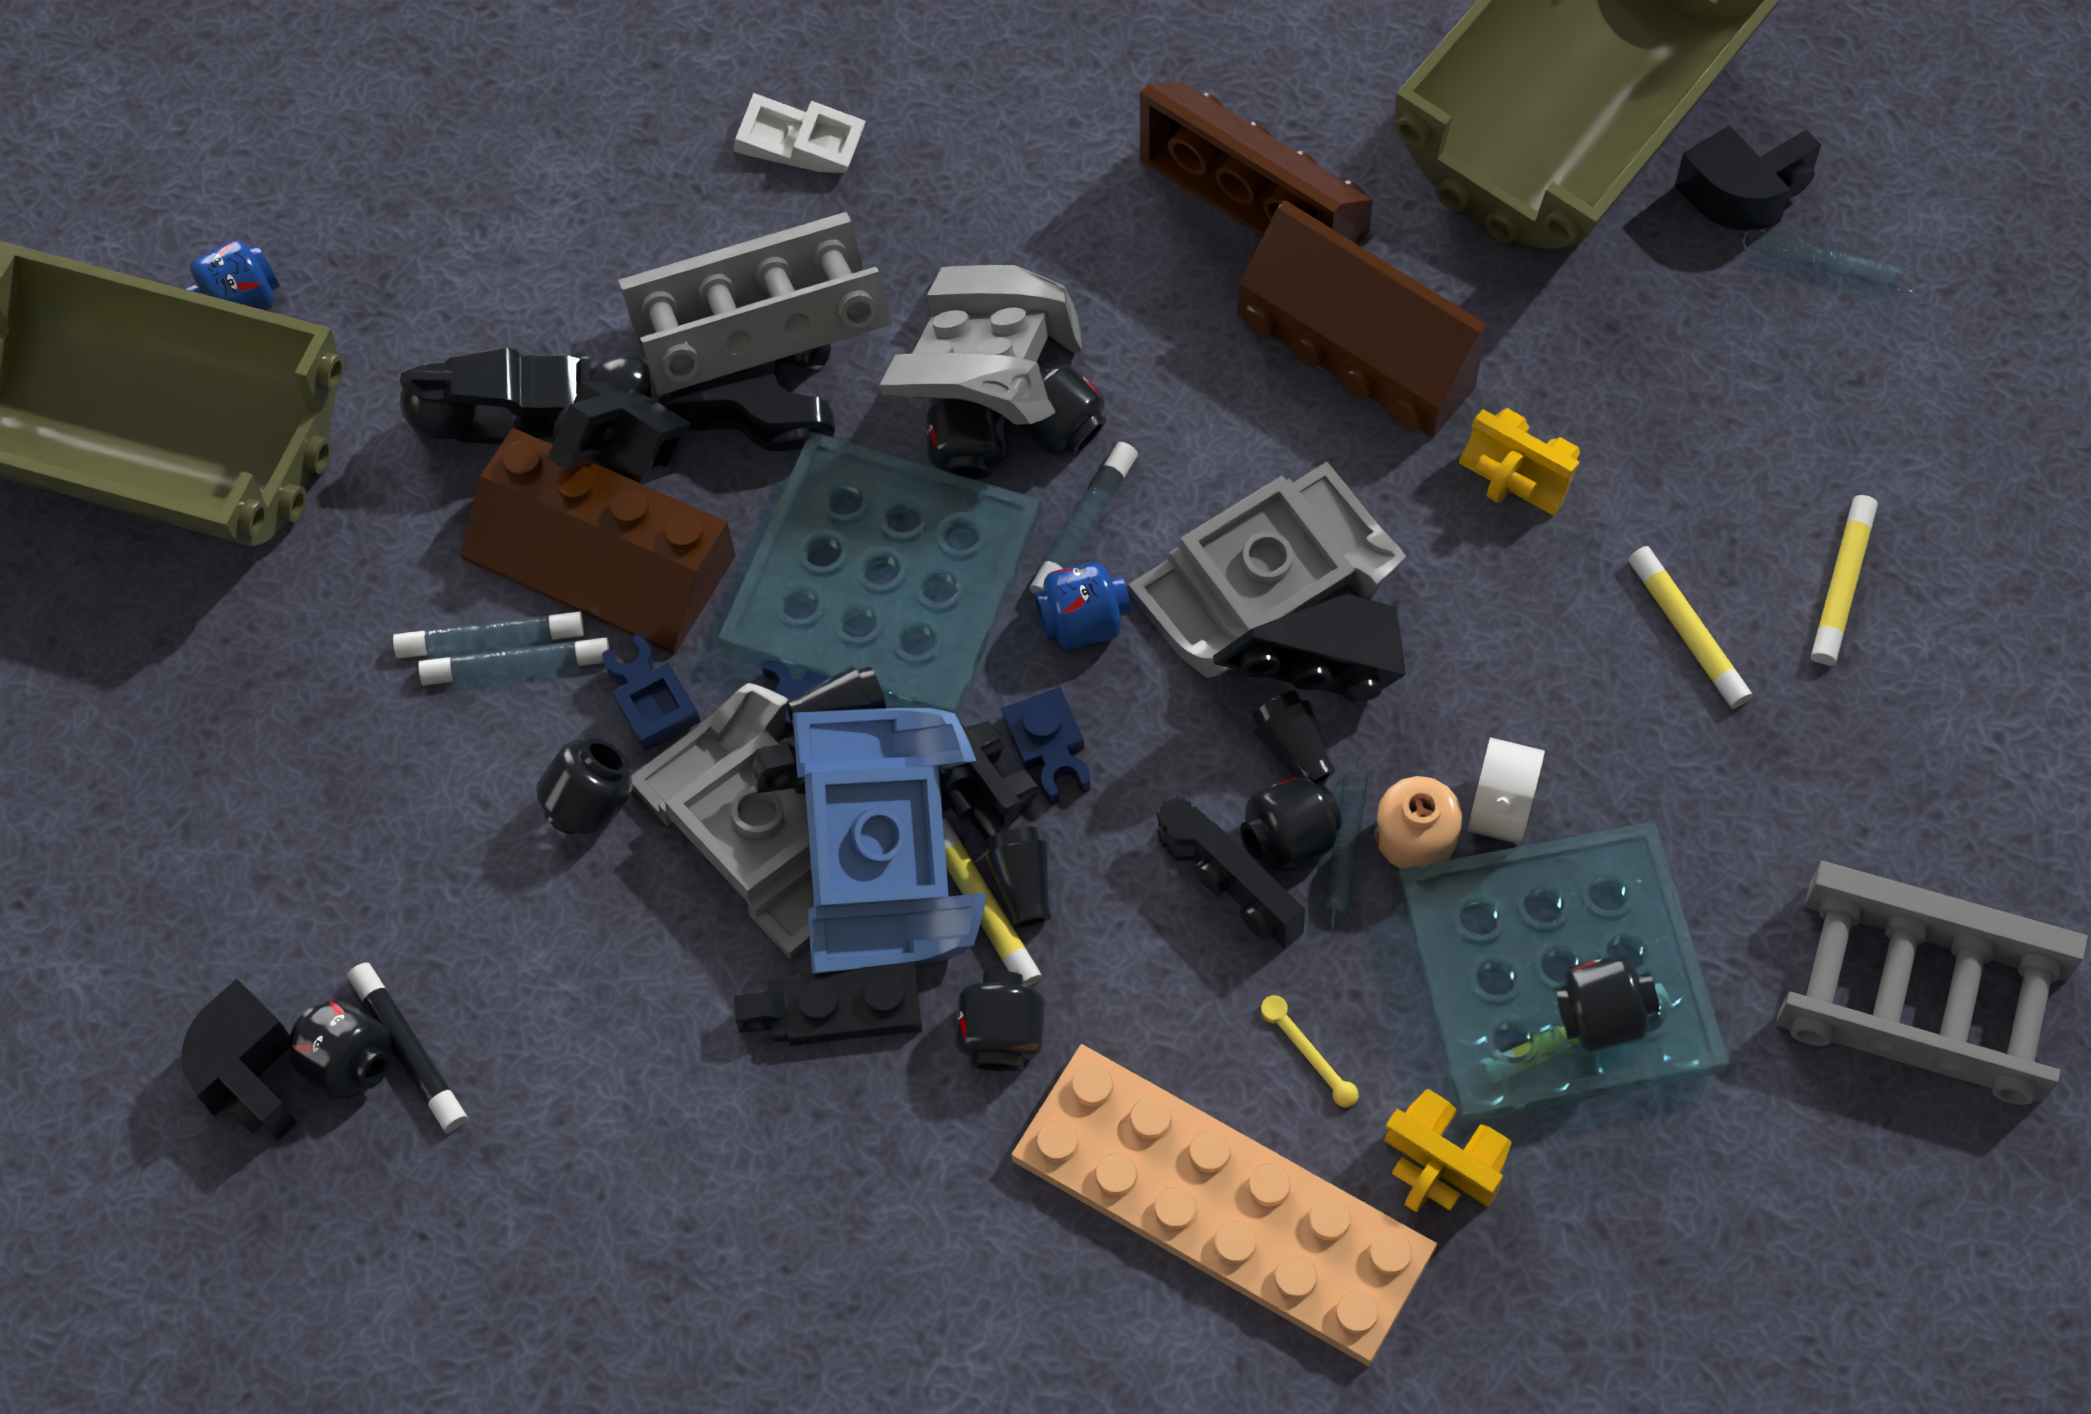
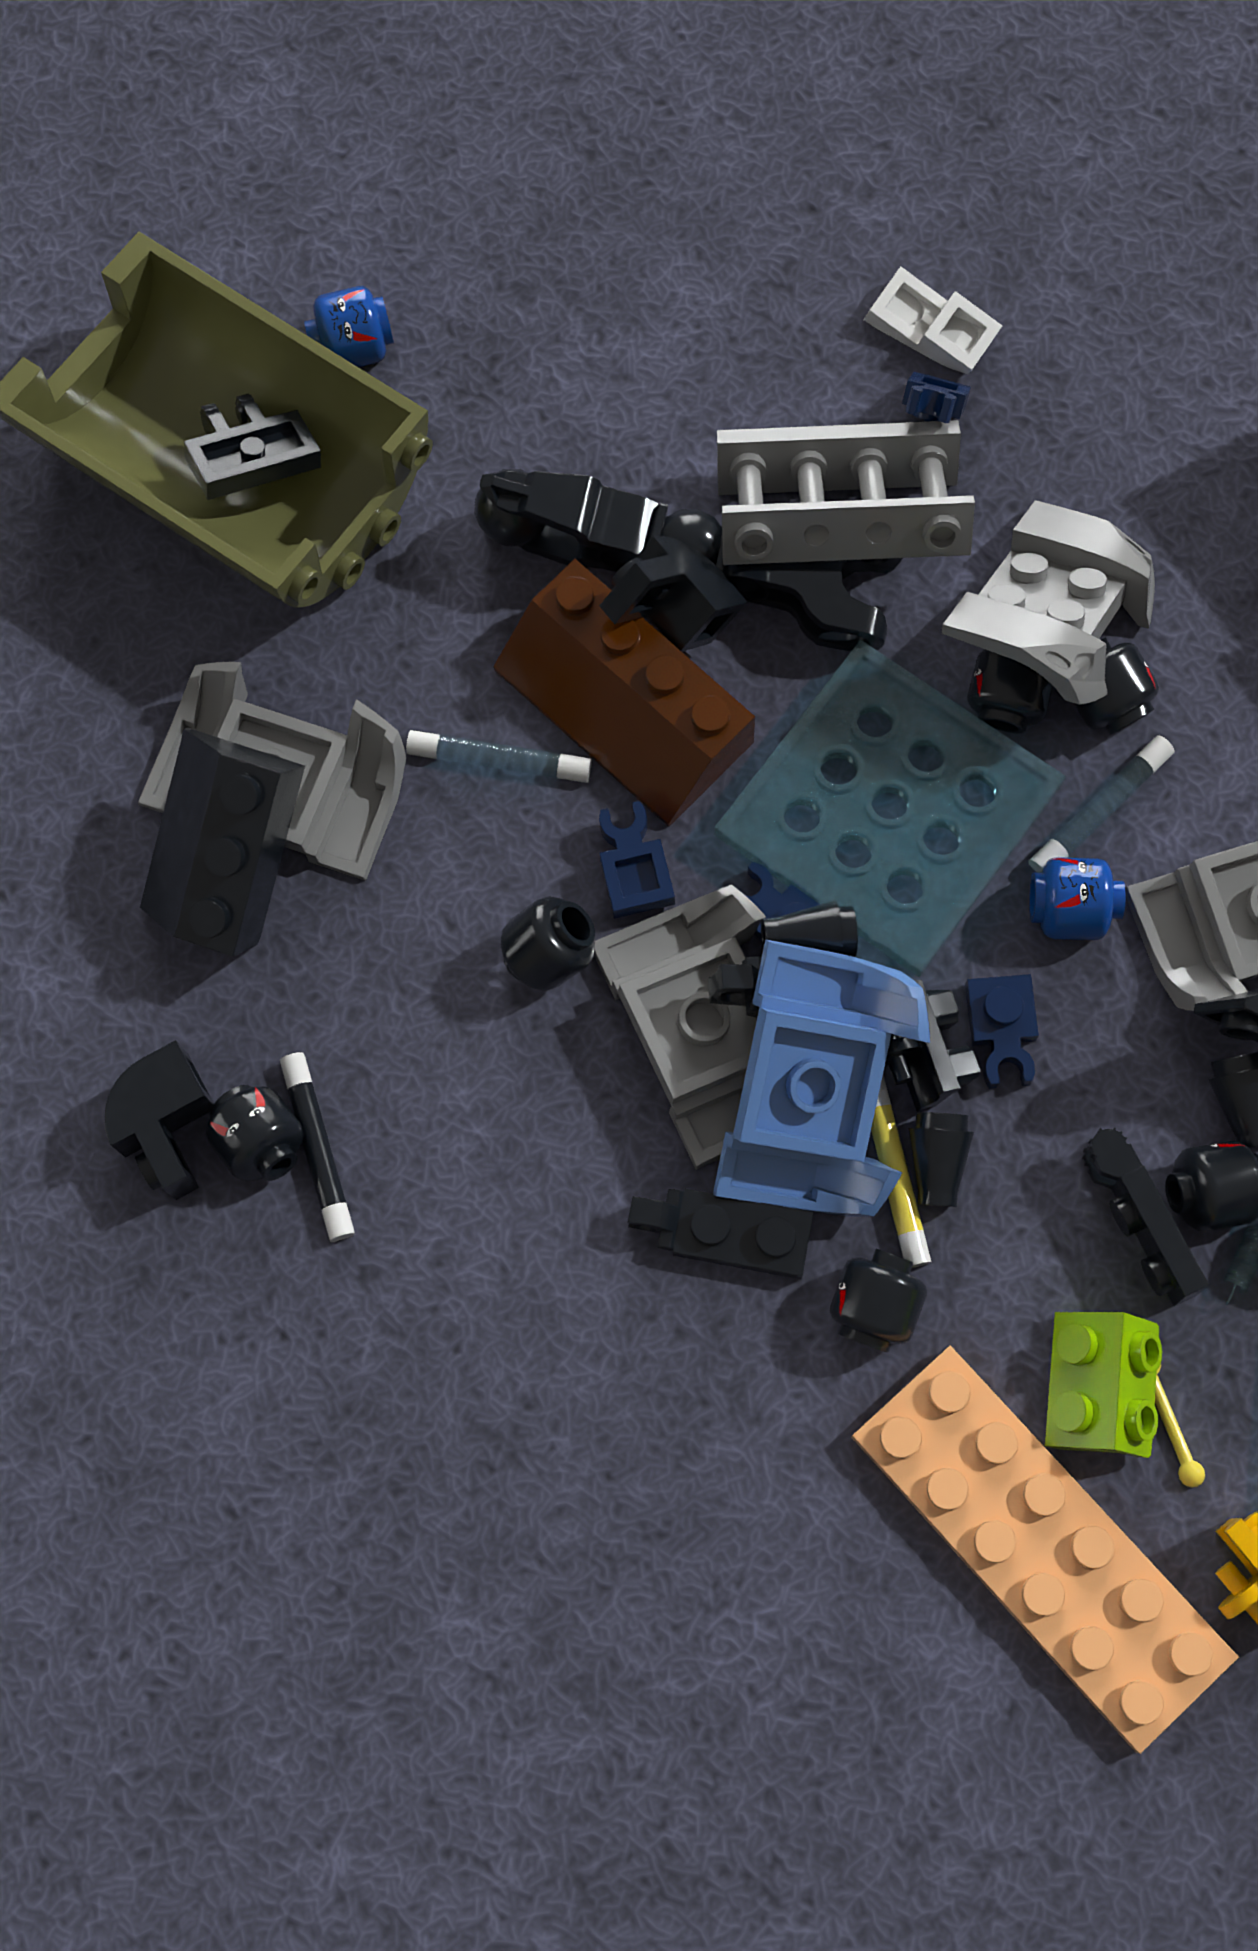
camera: 20 degrees right, 10 degrees up
(164, 416) = (250, 453): none -> black hinge
(231, 782) = (220, 842): none -> black slope
(271, 708) = (346, 780): none -> light grey piece
(512, 661) = (515, 790): clear light blue bar -> none
(819, 199) = (935, 398): none -> dark blue plate
(1236, 1033) = (1103, 1383): none -> lime bracket

